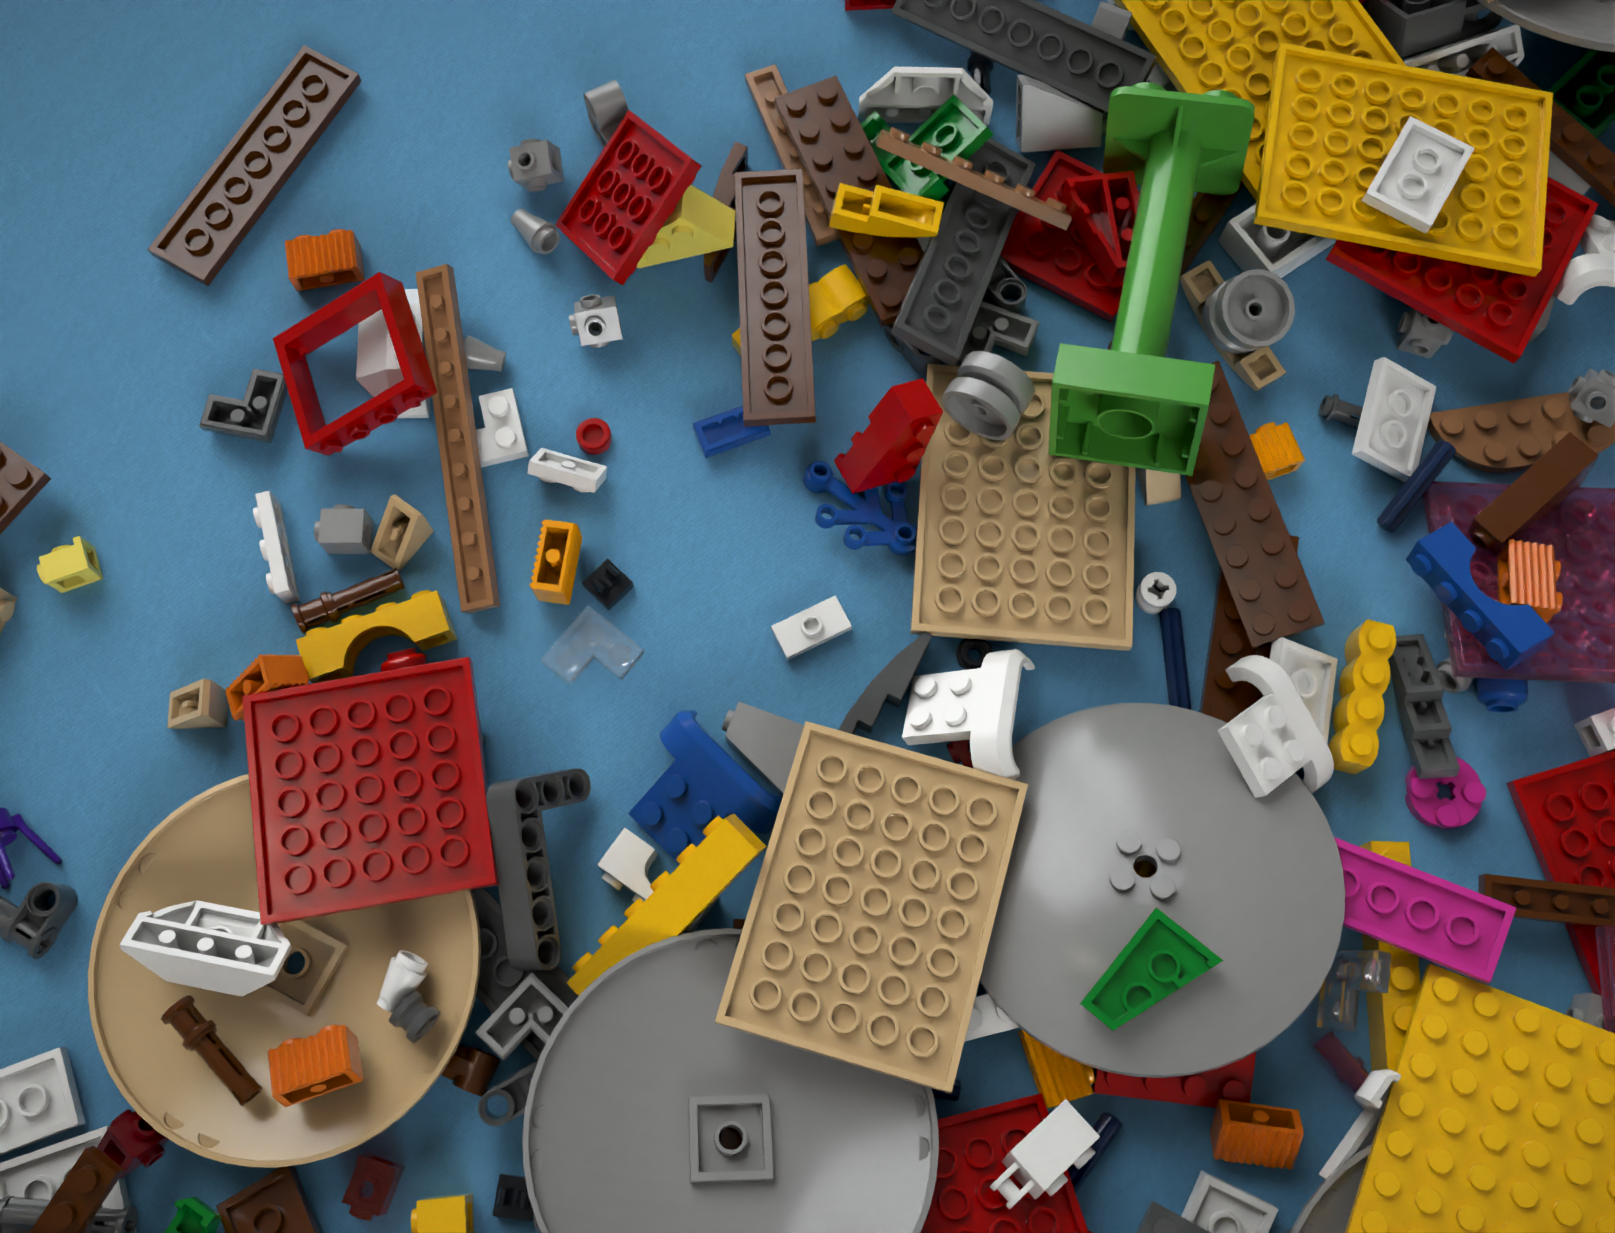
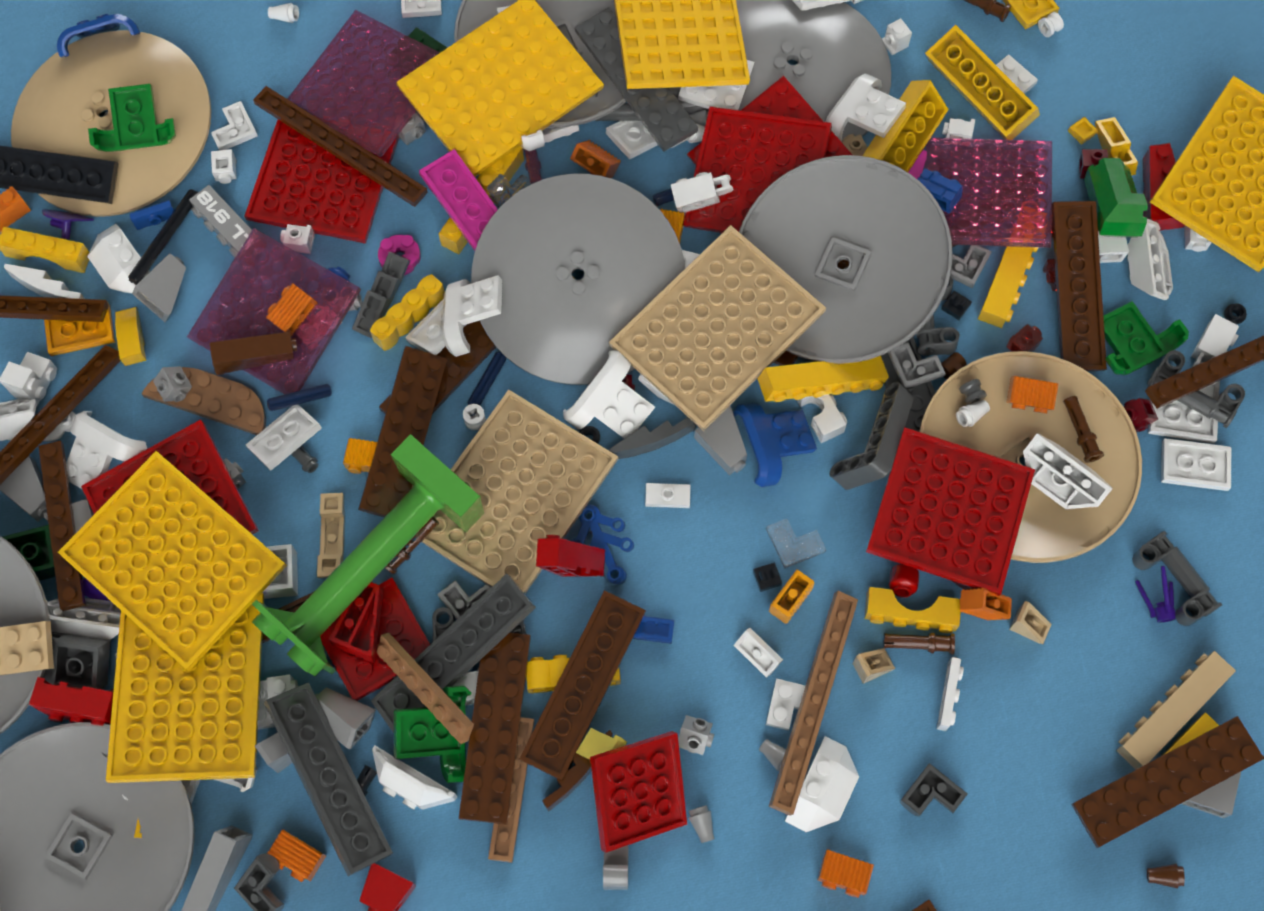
camera: 150 degrees left, 5 degrees down
(70, 566) = (1077, 746): light yellow brick -> none
(328, 323) = (819, 773): red window -> none
(344, 530) = (905, 683): light grey brick -> none
(535, 164) = (680, 865): light grey brick -> none
(593, 436) = (732, 670): red tile -> none
(885, 212) = (490, 692): yellow slope -> none
(988, 395) = (499, 550): light grey wheel -> none
(1147, 970) = (605, 225): green wing -> none
(1248, 311) = (321, 529): light grey wheel -> none
(1418, 175) = (179, 535): white plate -> none
(1504, 630) = (323, 340): blue arch -> none

